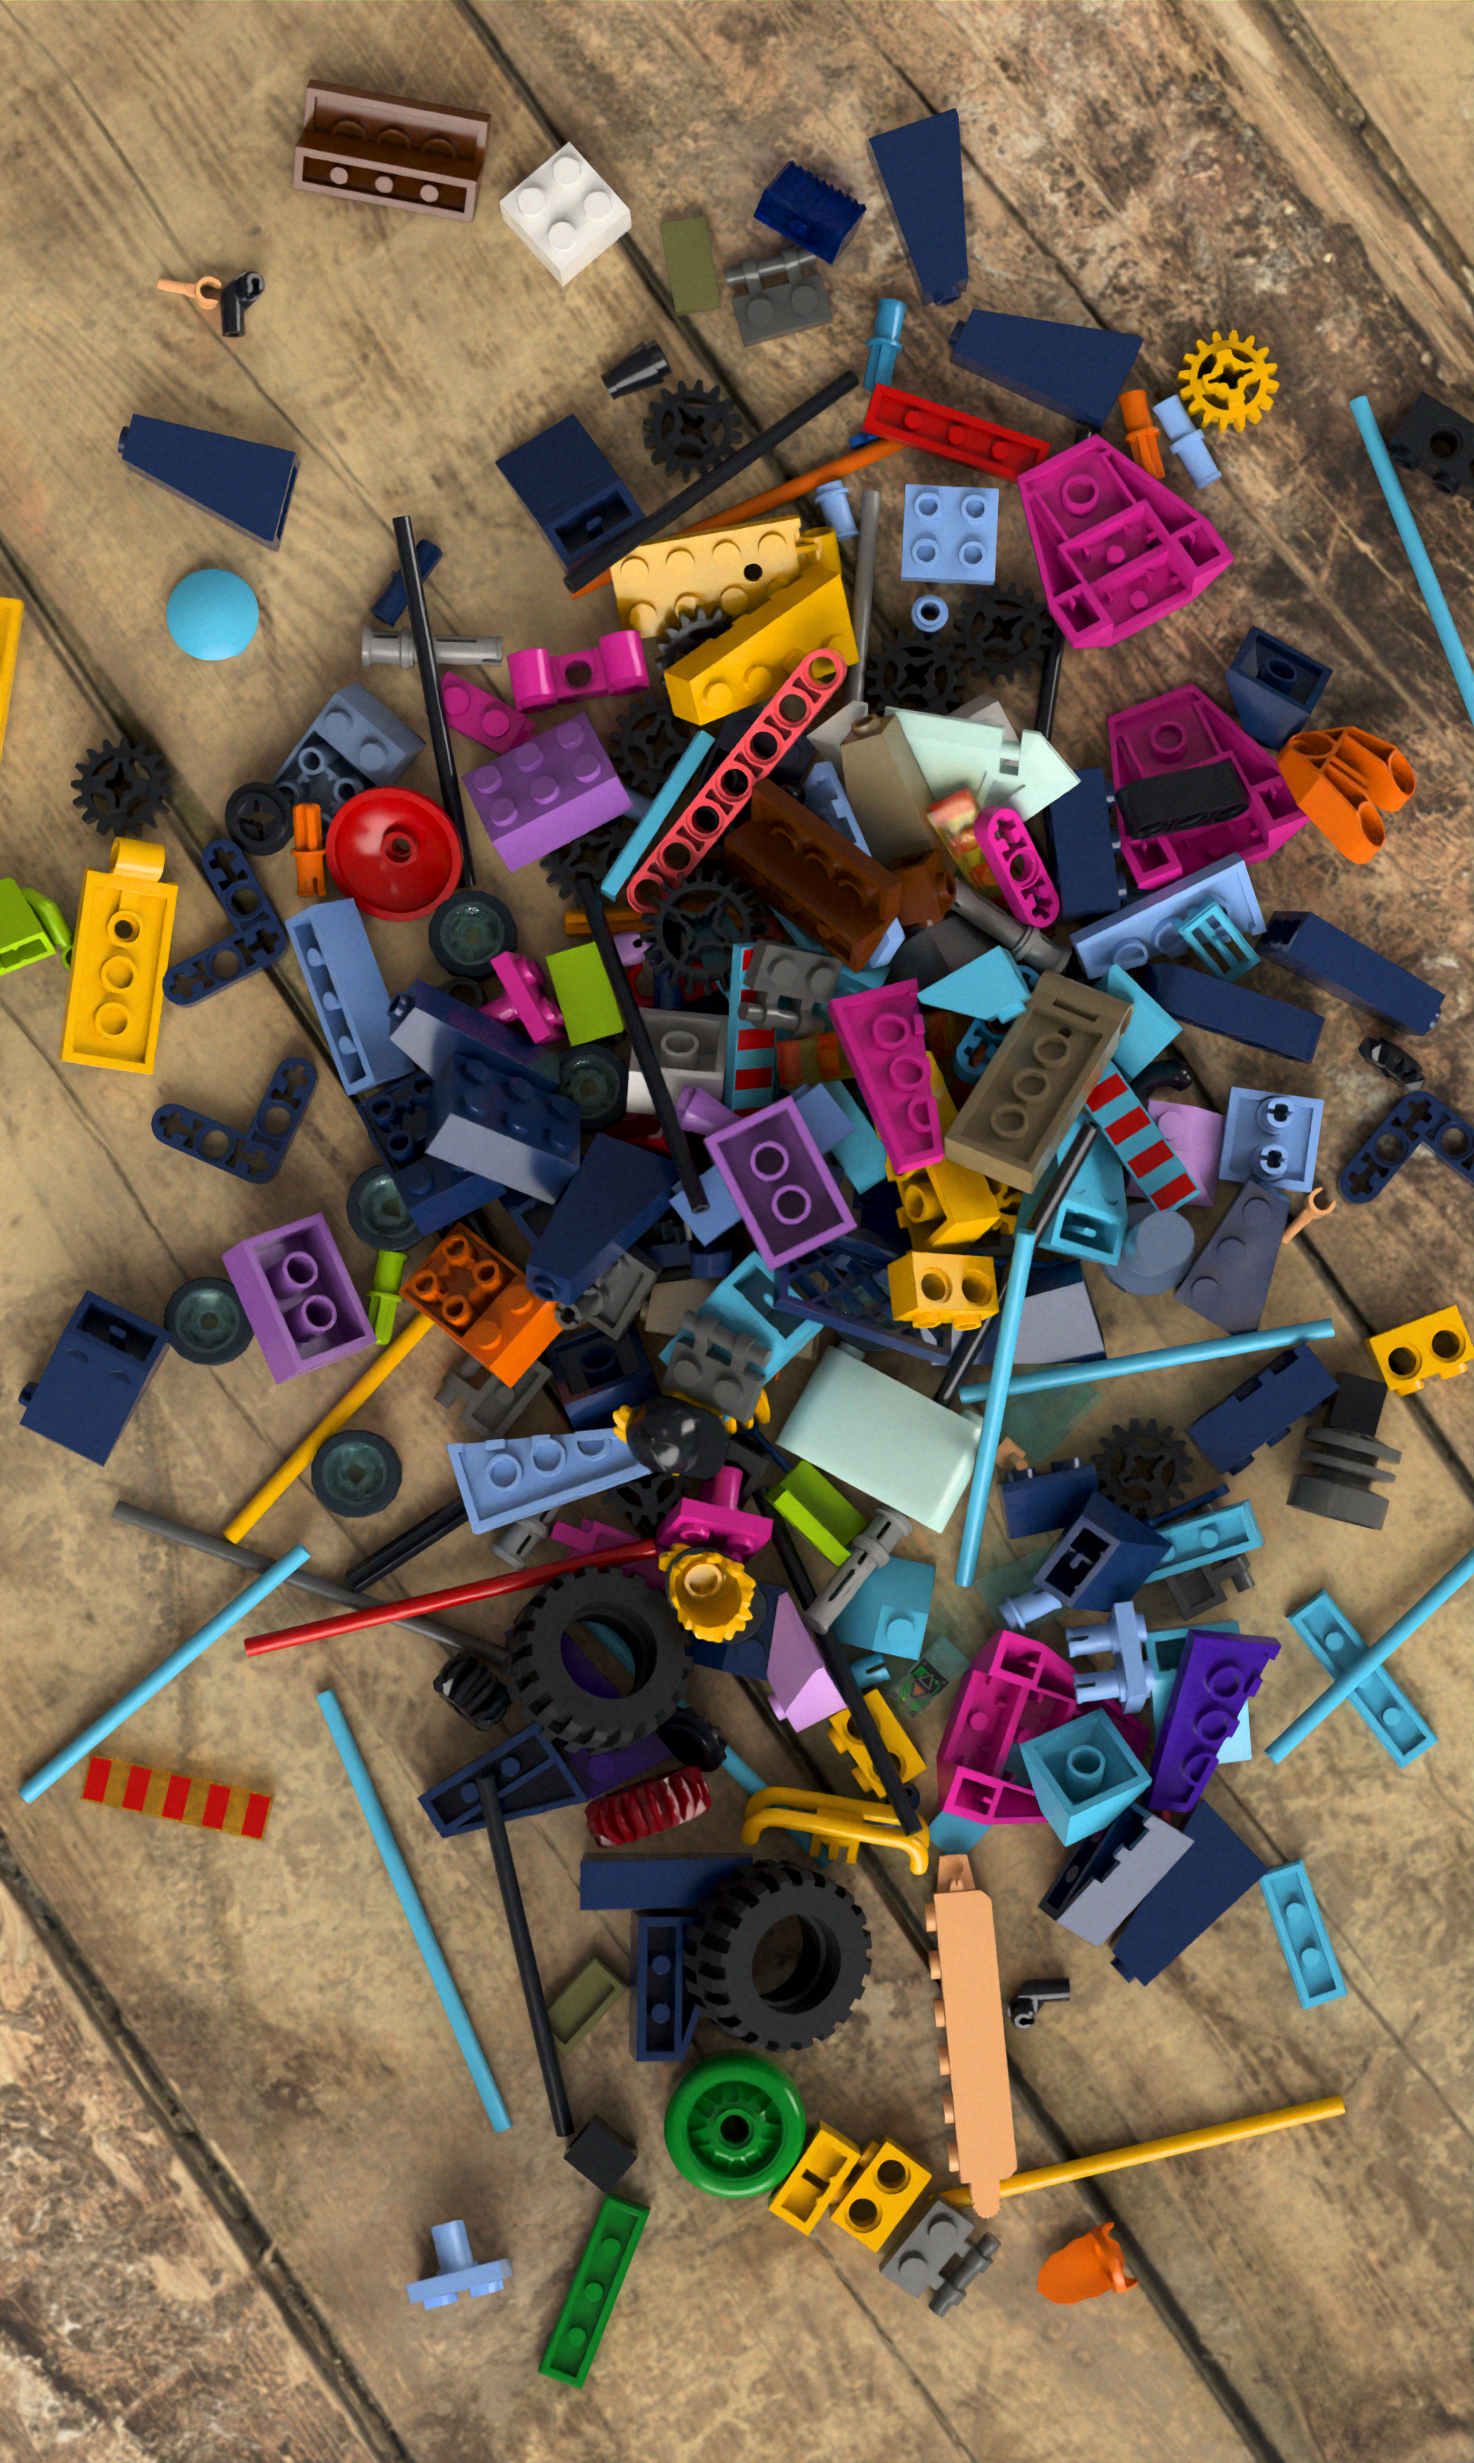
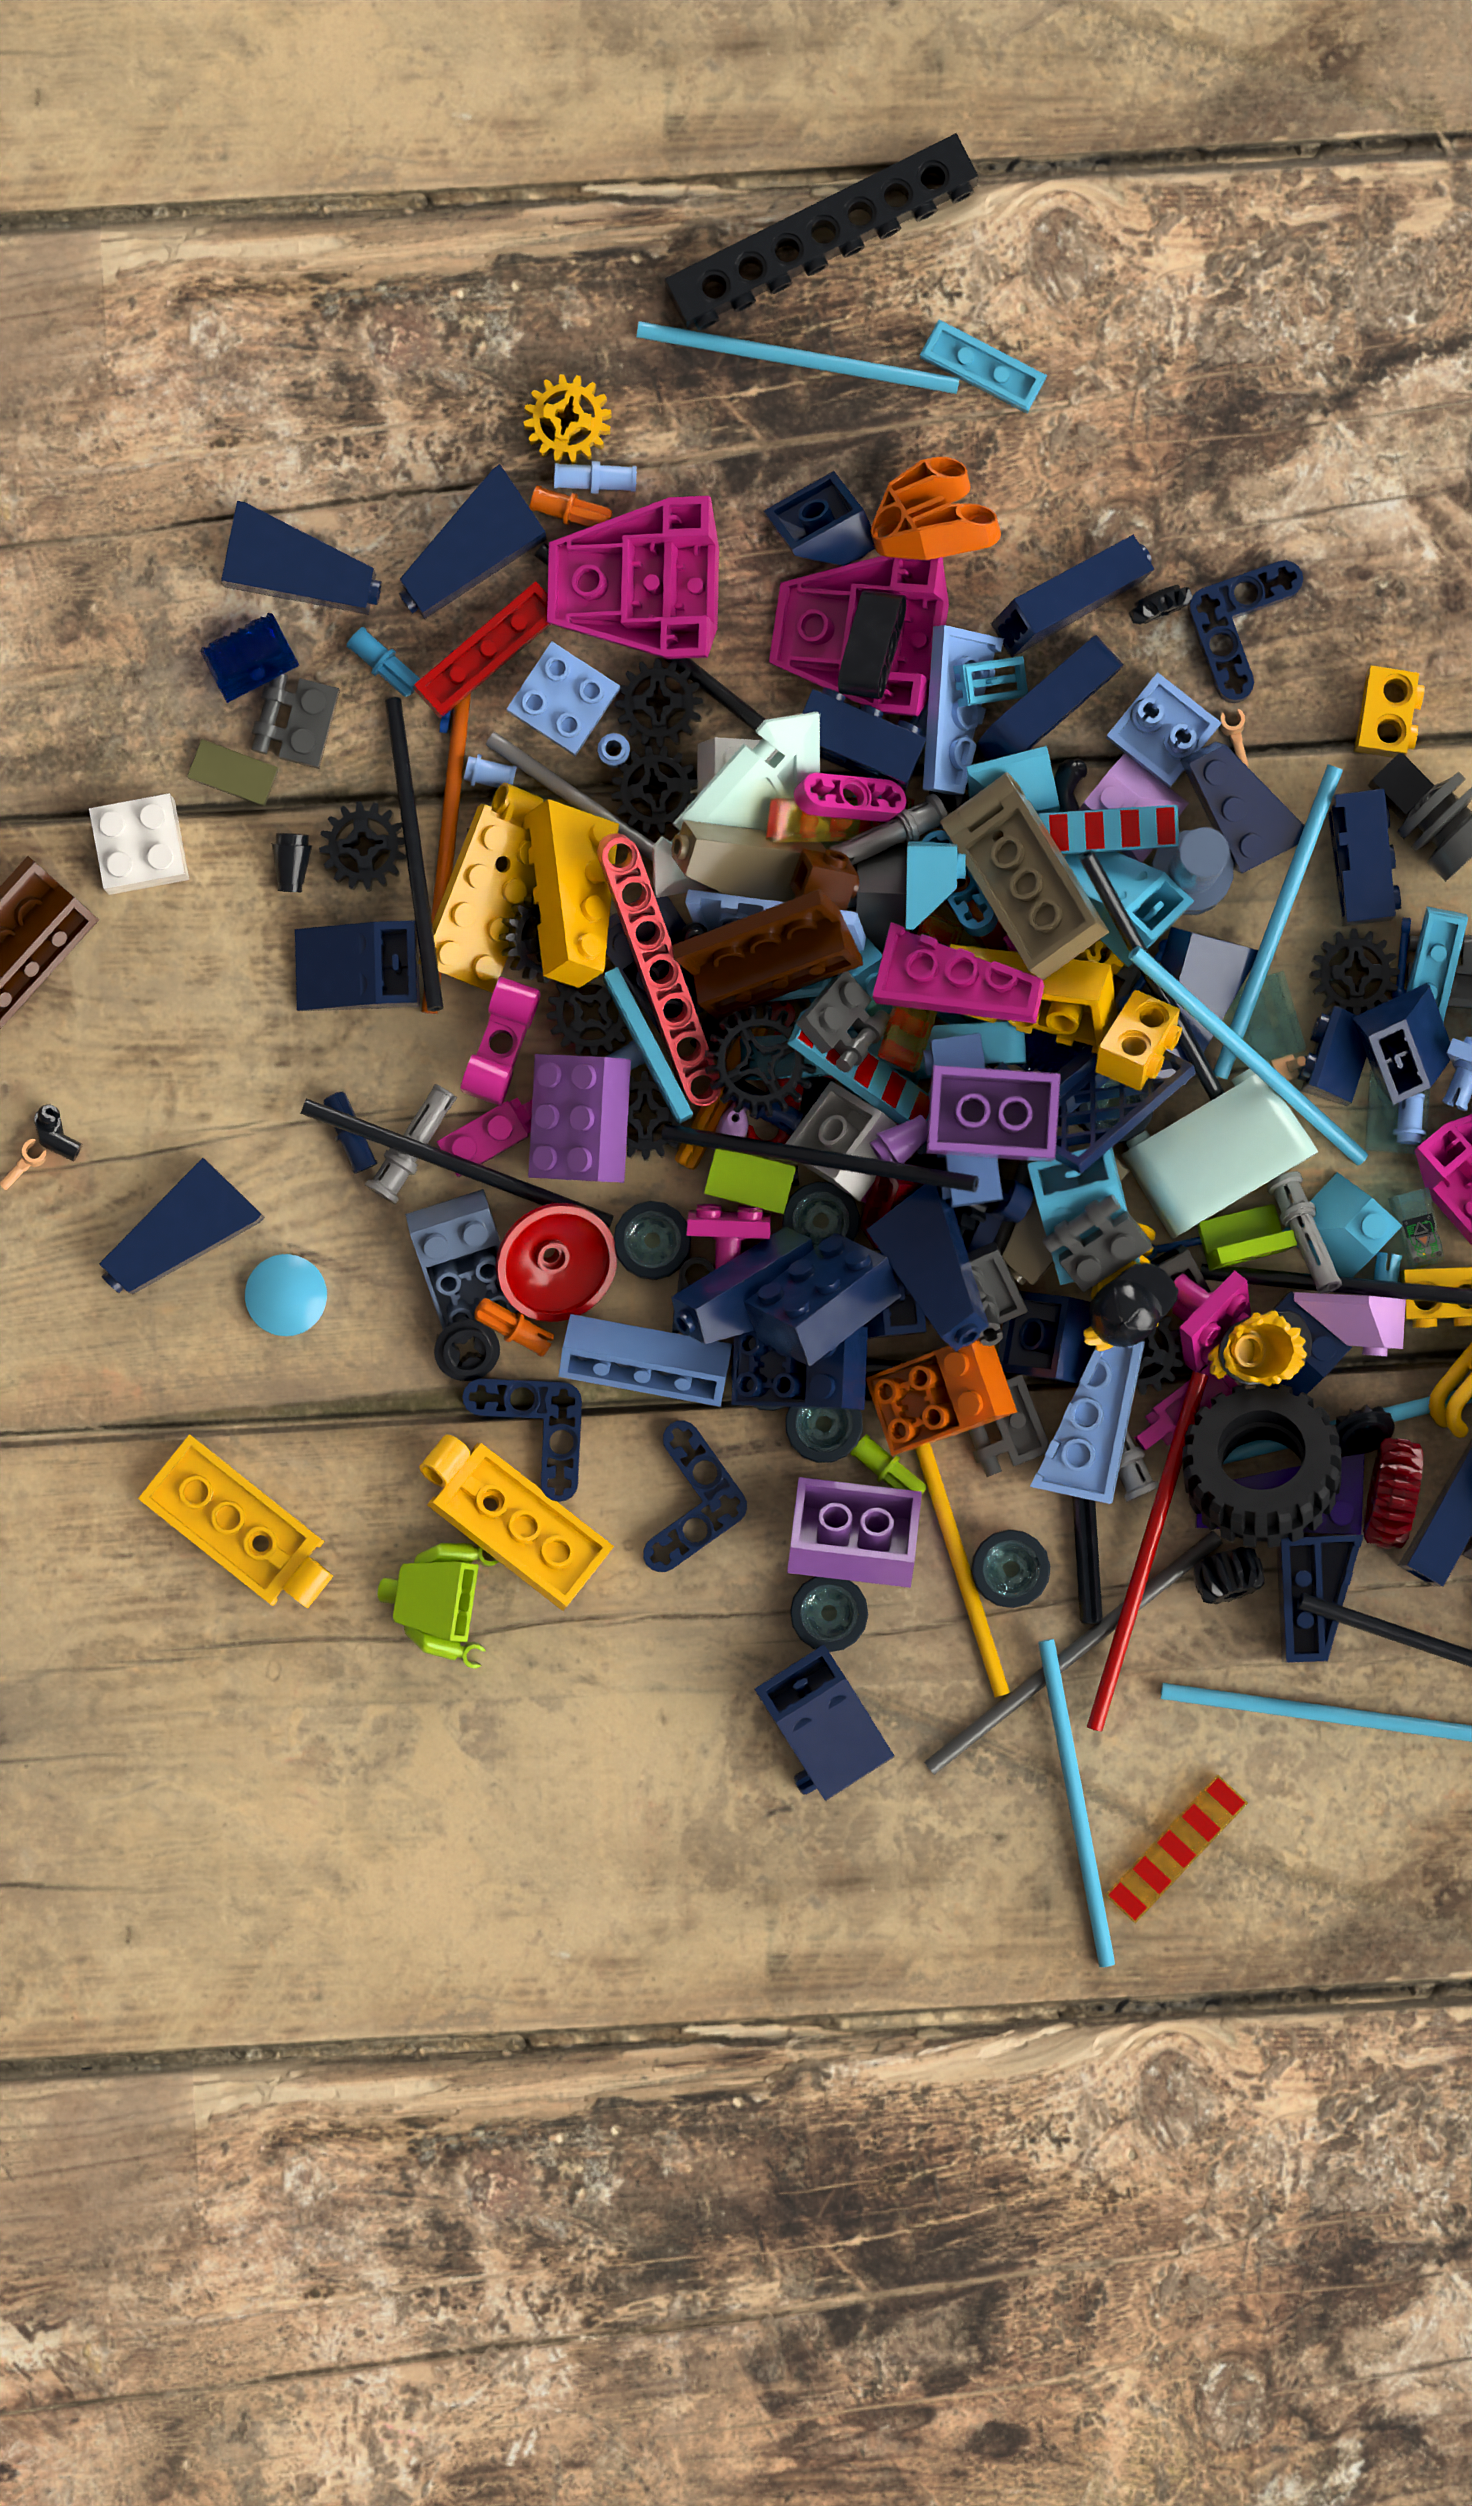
camera: 60 degrees left, 0 degrees up
(122, 768) = (369, 1456): black gear -> none

